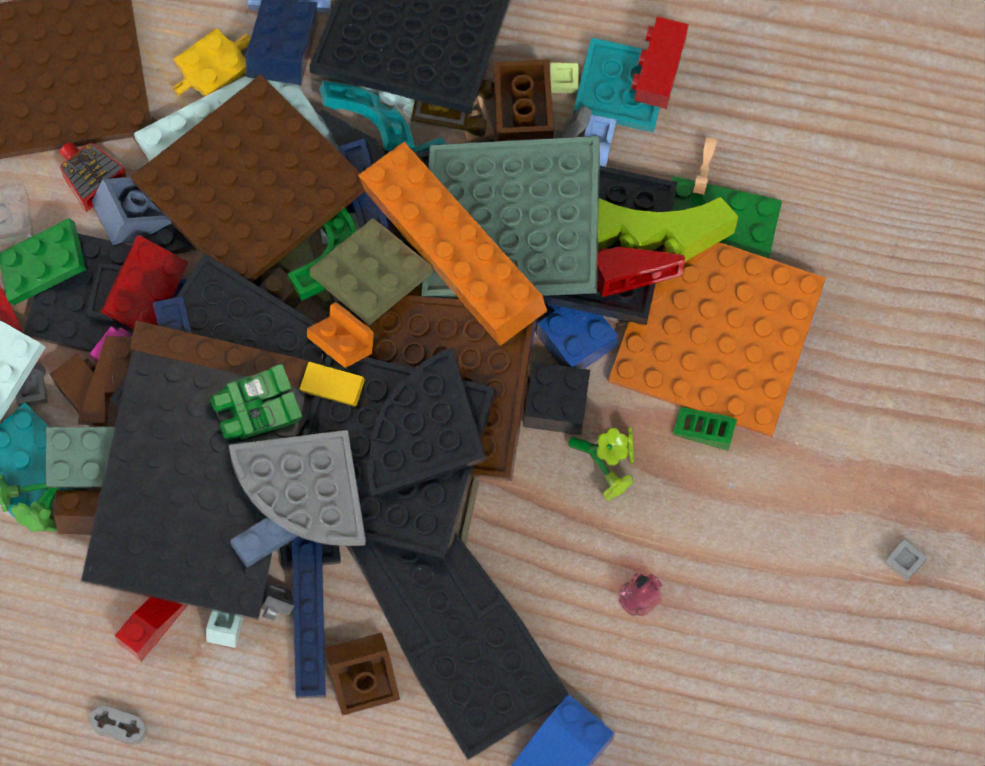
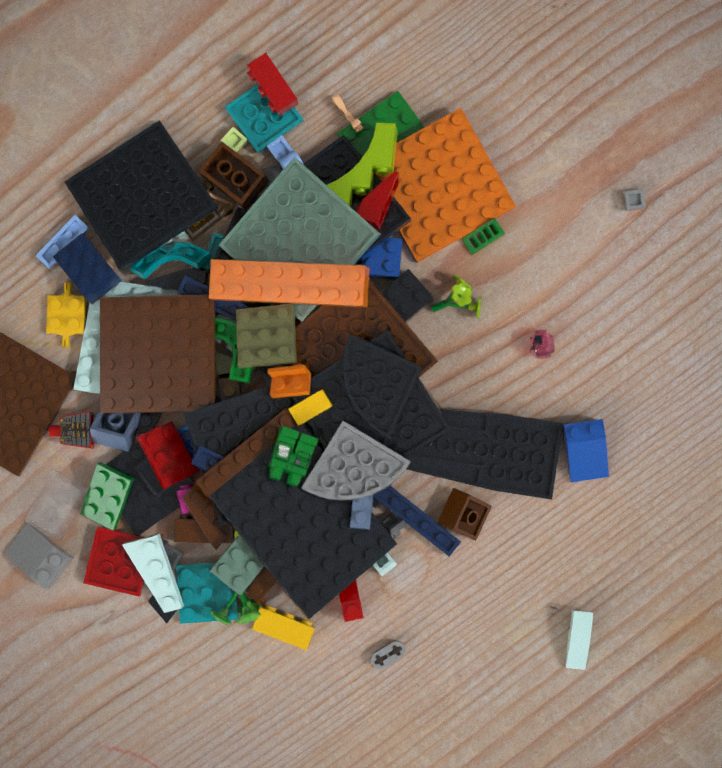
camera: 45 degrees left, 15 degrees up
(52, 578) = (284, 627): none -> yellow brick
(577, 123) = (267, 157): light grey tile -> none

